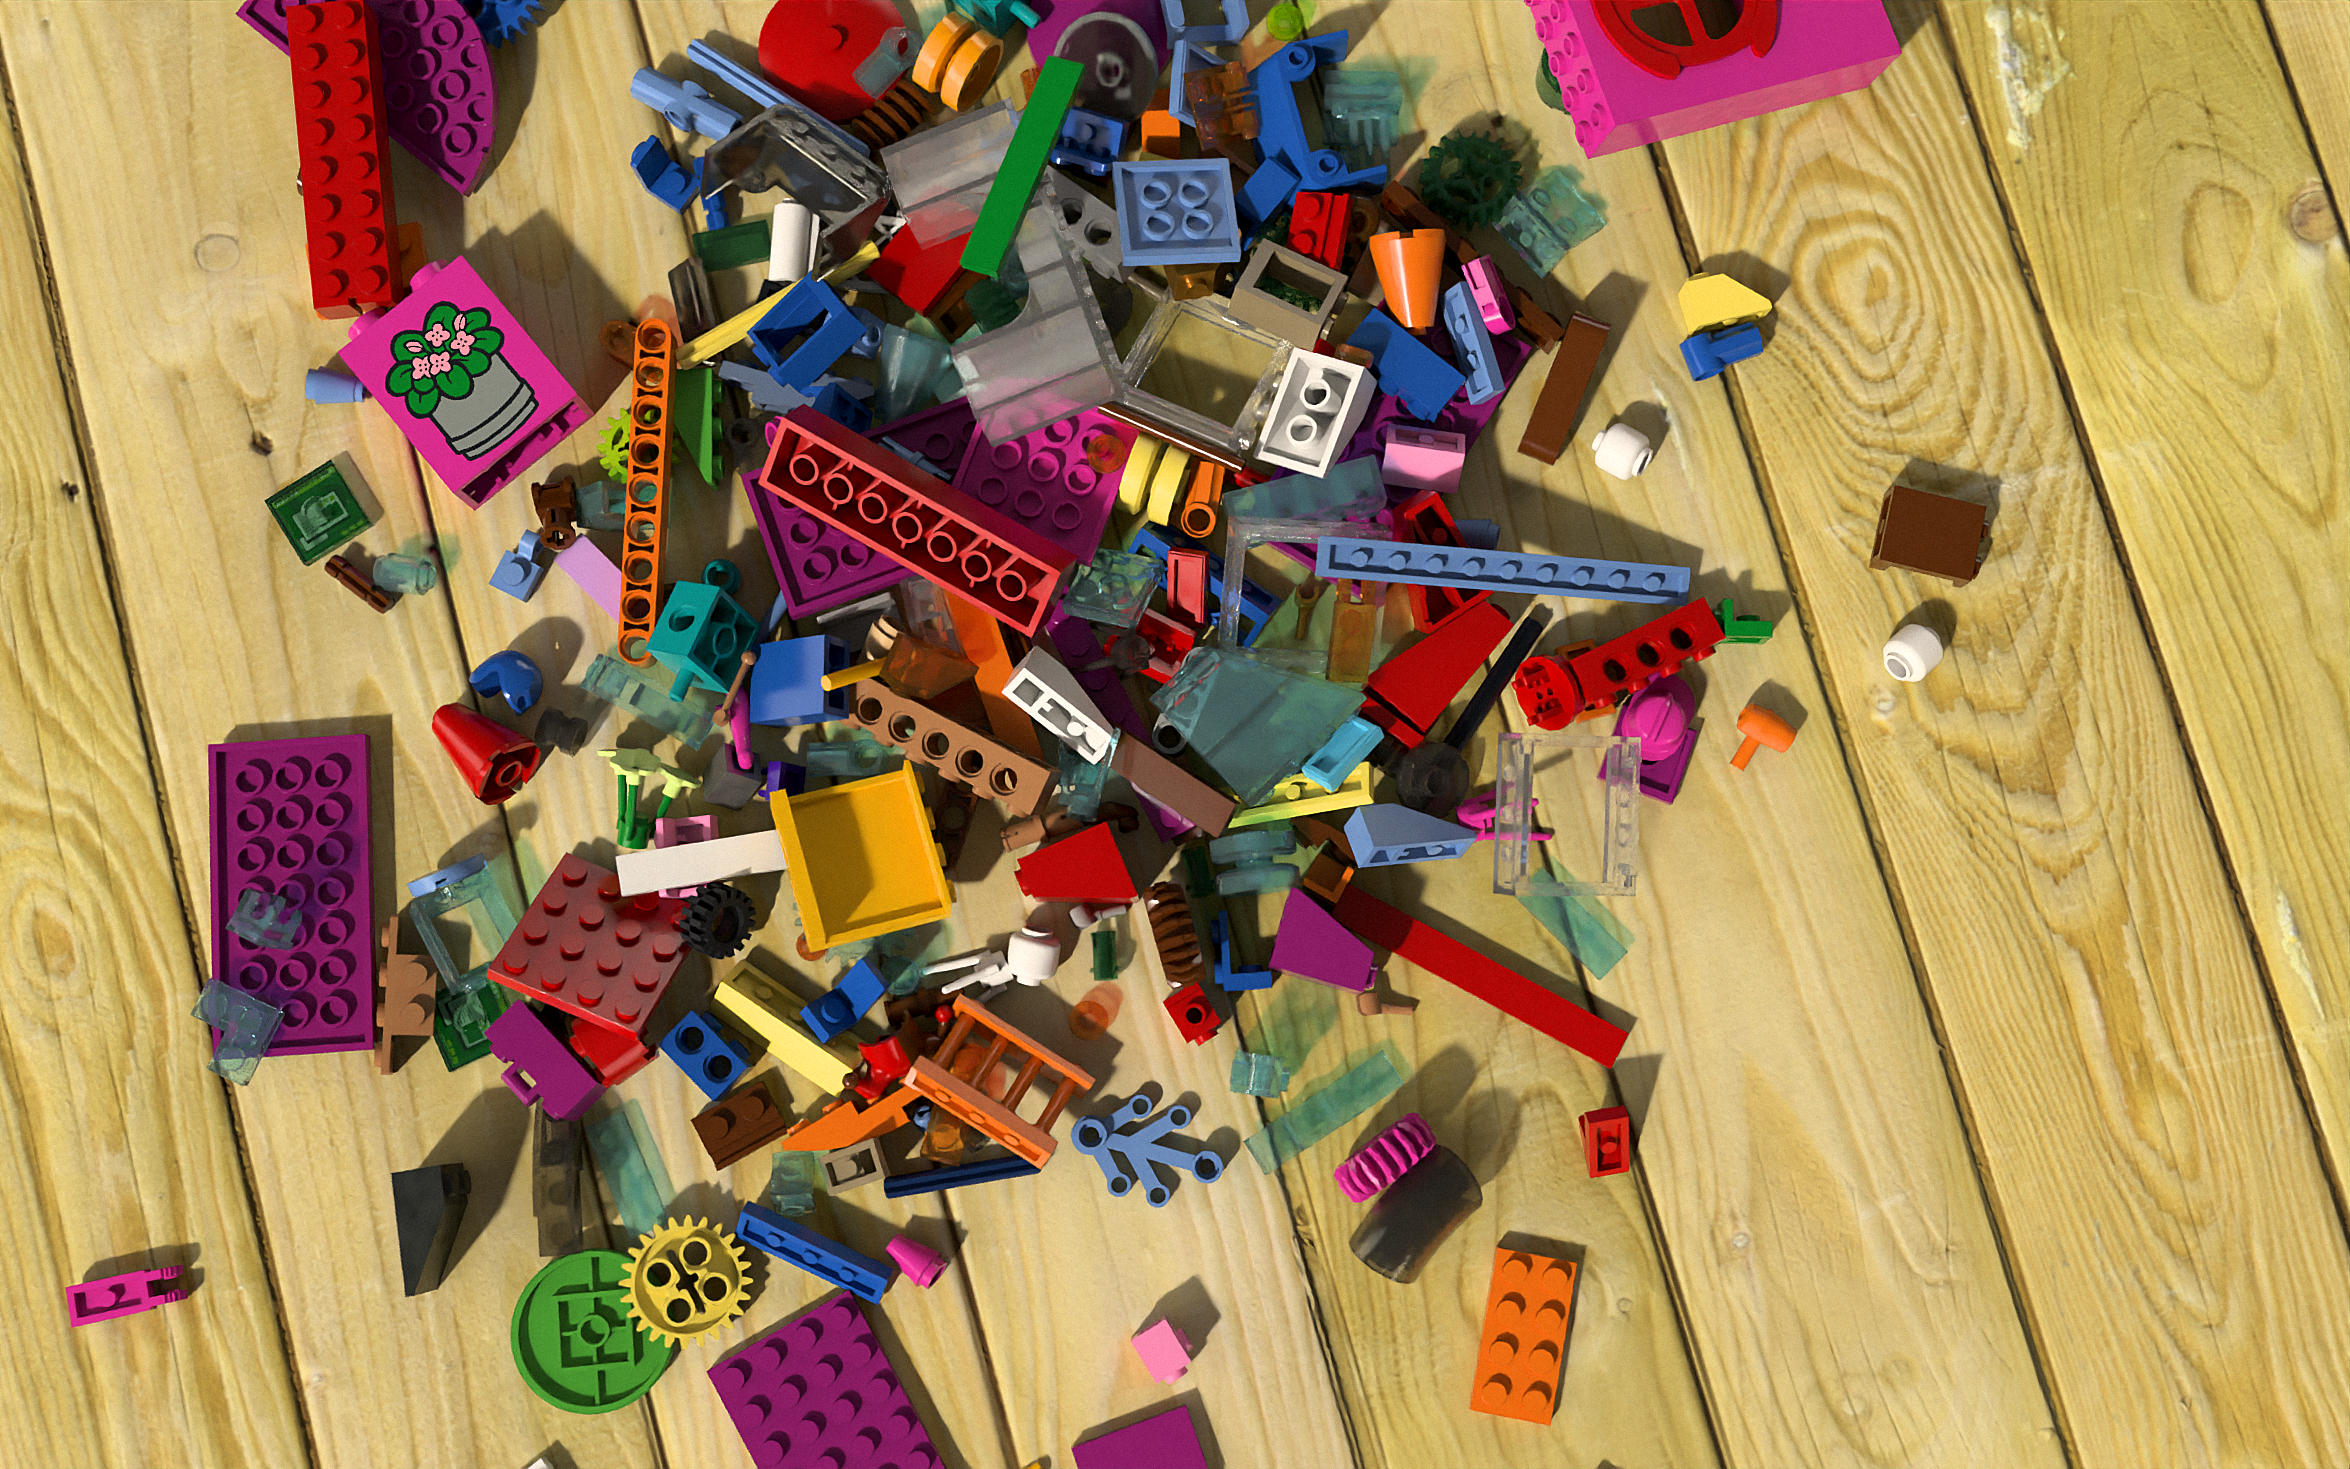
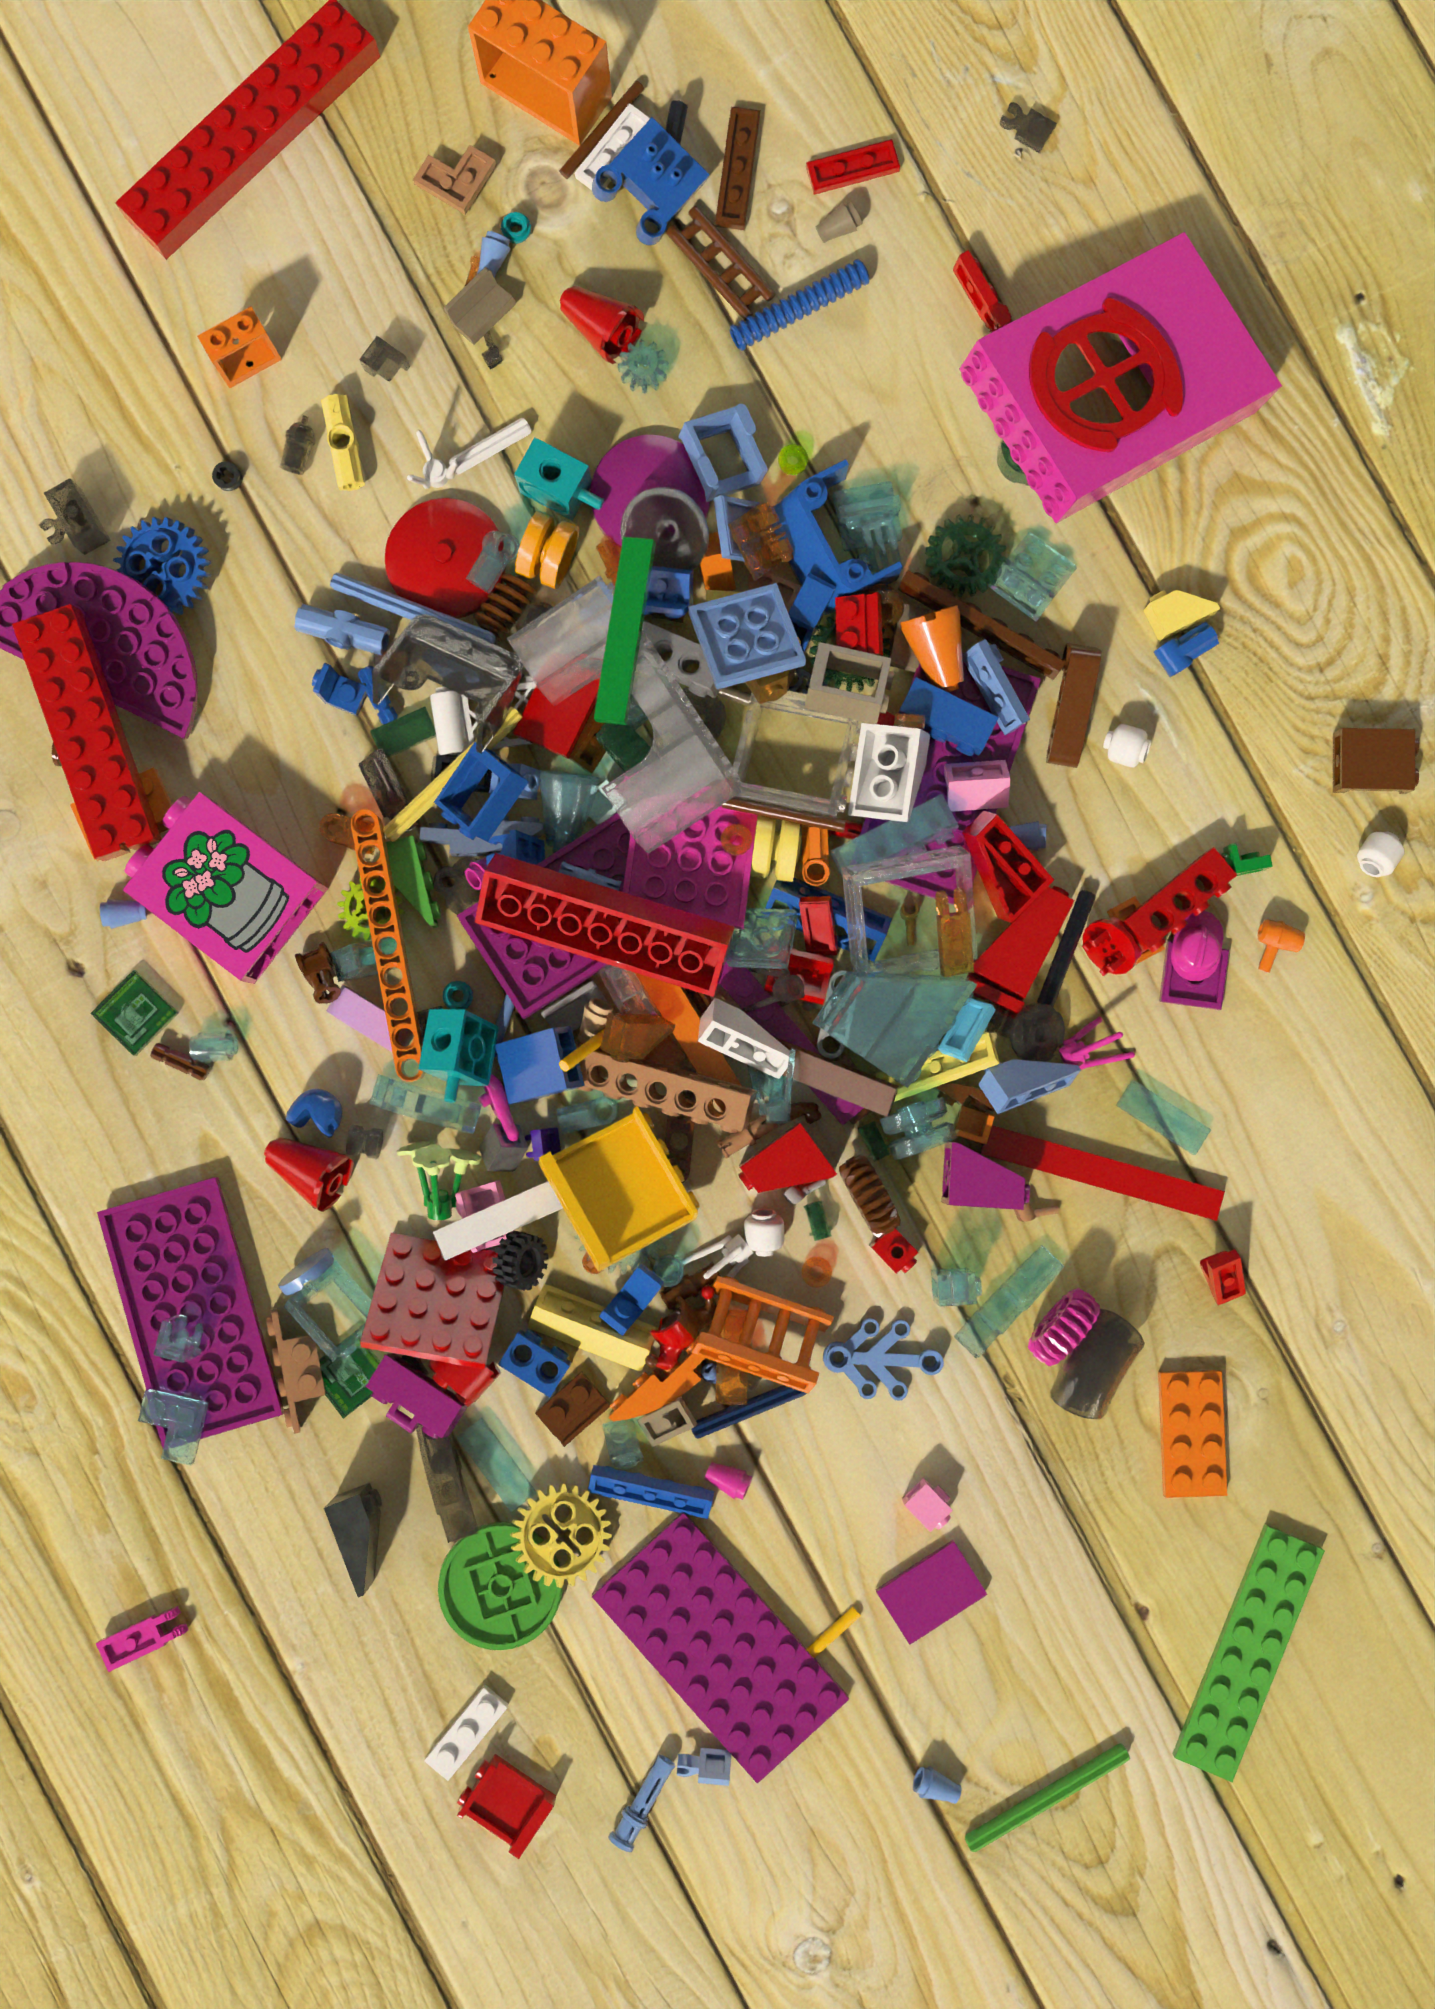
camera: 15 degrees left, 5 degrees up
(519, 573) = (300, 1025): medium blue plate -> none
(721, 716) = (487, 1106): medium nougat hinge -> none
(1248, 977) = (930, 1213): blue bracket -> none
(1489, 295) = (1002, 647): dark pink piece -> none
(1501, 571) = (1058, 863): medium blue plate -> none
(1515, 815) = (1109, 1048): clear window -> none

